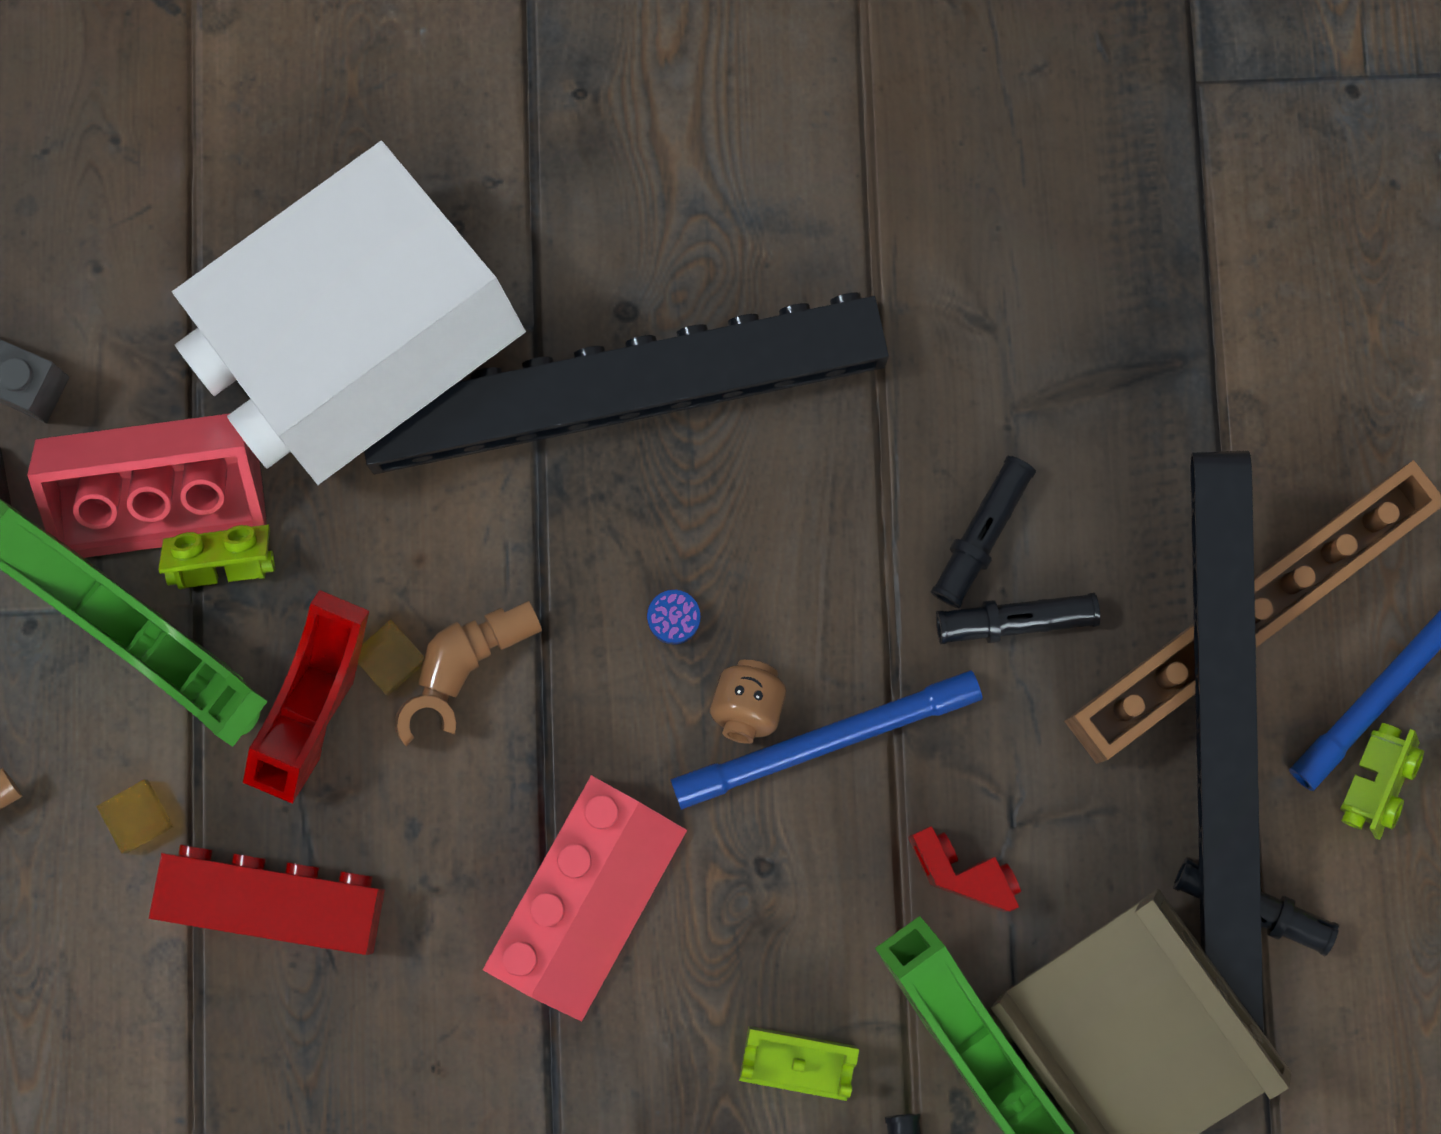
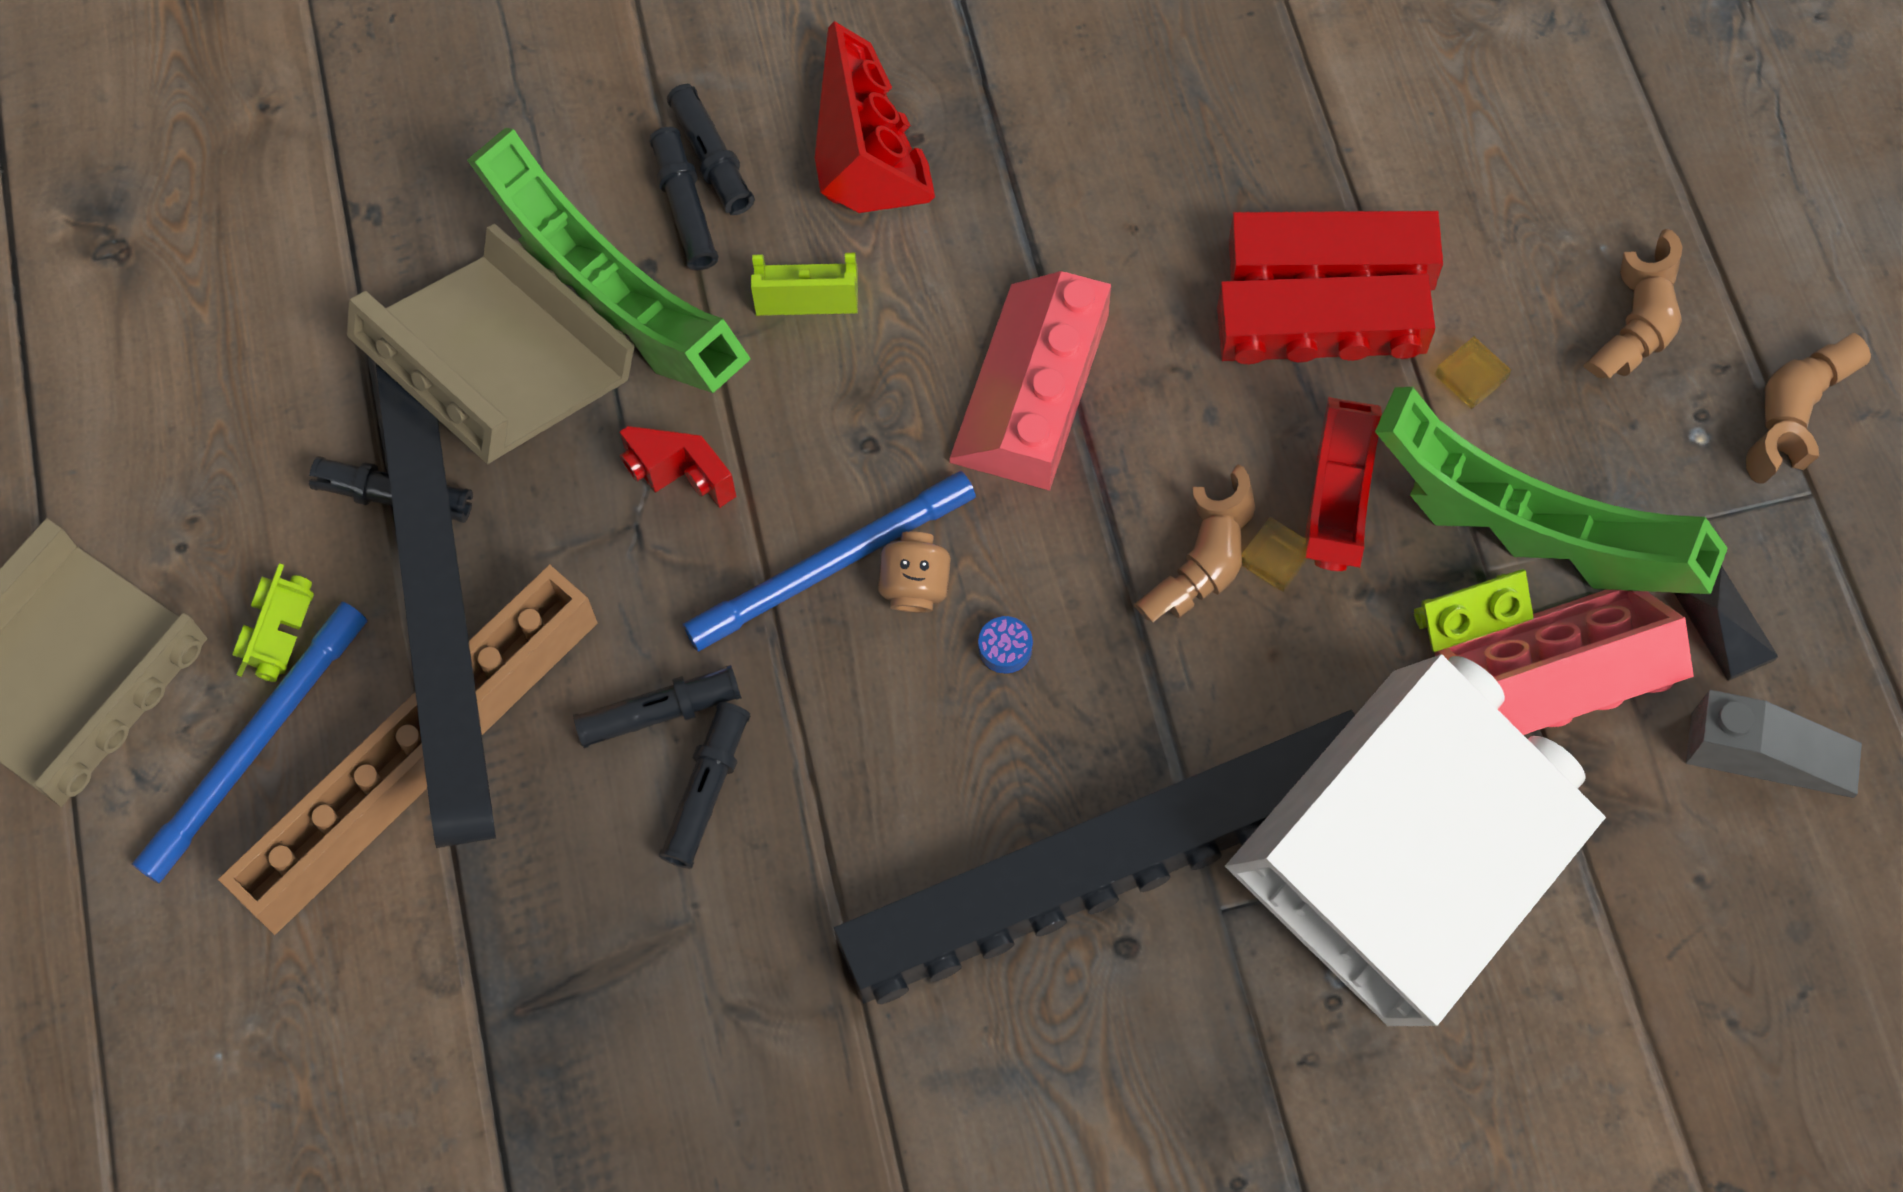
camera: 175 degrees right, 15 degrees down
(234, 980) = (1334, 244): none -> red brick

